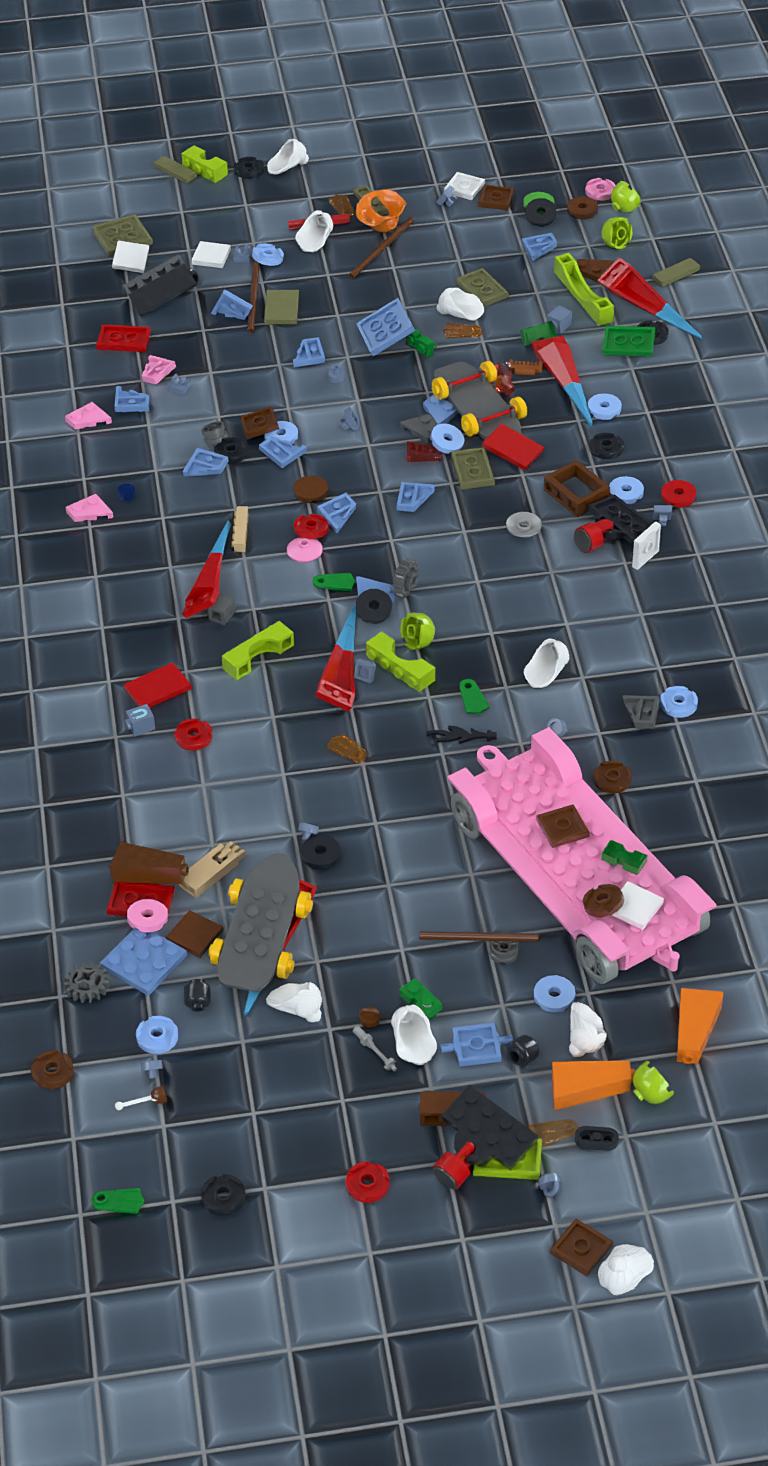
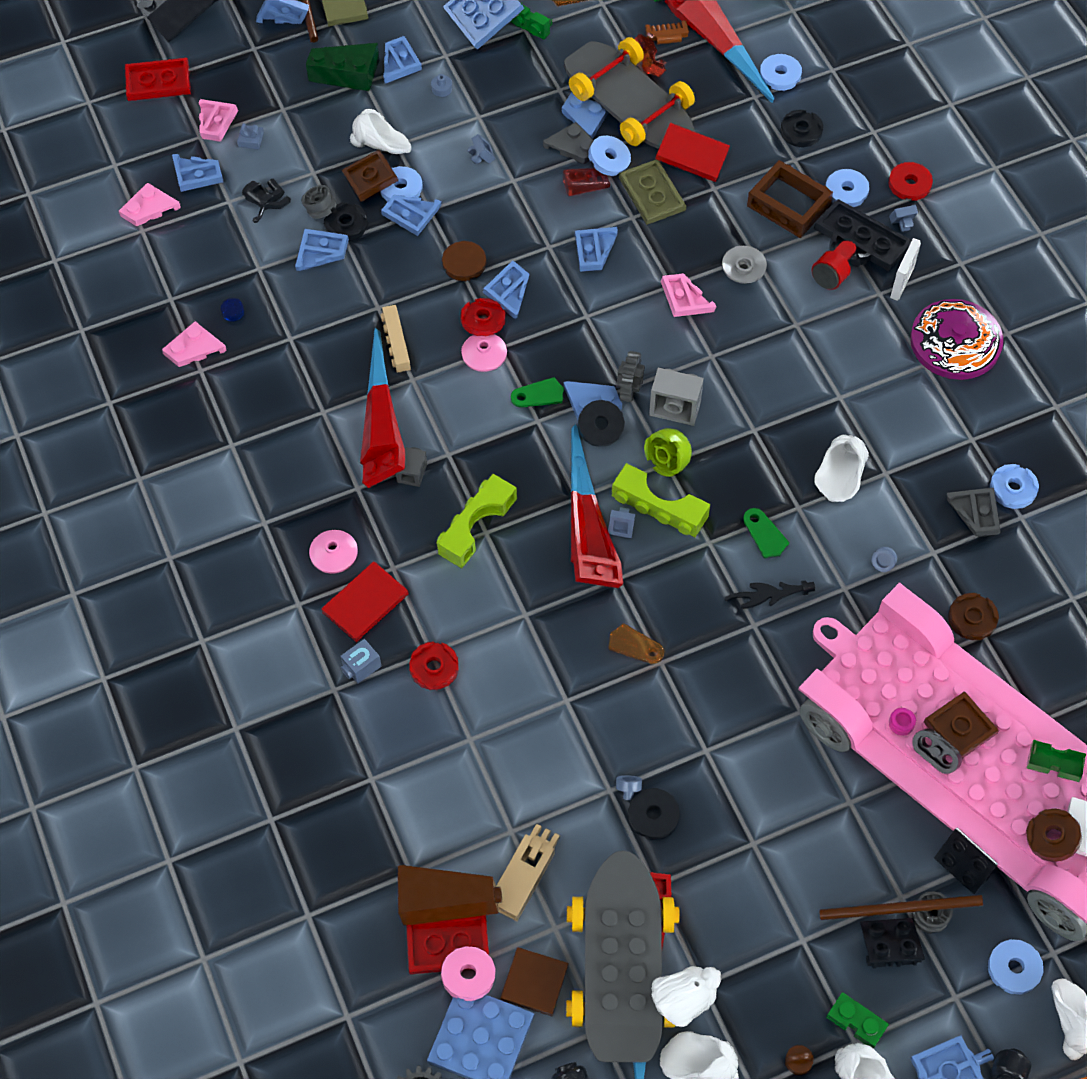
camera: 15 degrees left, 15 degrees up
(146, 653) = (333, 560): none -> bright pink dish
(172, 423) = (259, 195): none -> black piece
(266, 349) = (344, 65): none -> dark green wedge
(272, 393) = (374, 131): none -> white hair
(298, 953) = (685, 993): none -> white hair
(435, 596) = (676, 396): none -> light grey brick
(467, 958) = (892, 942): none -> black hinge
(470, 538) = (684, 296): none -> bright pink wing
(519, 815) = (902, 721): none -> dark pink tile
(537, 836) = (936, 753): none -> black plate
(540, 918) = (965, 860): none -> black hinge
(672, 601) = (956, 339): none -> dish

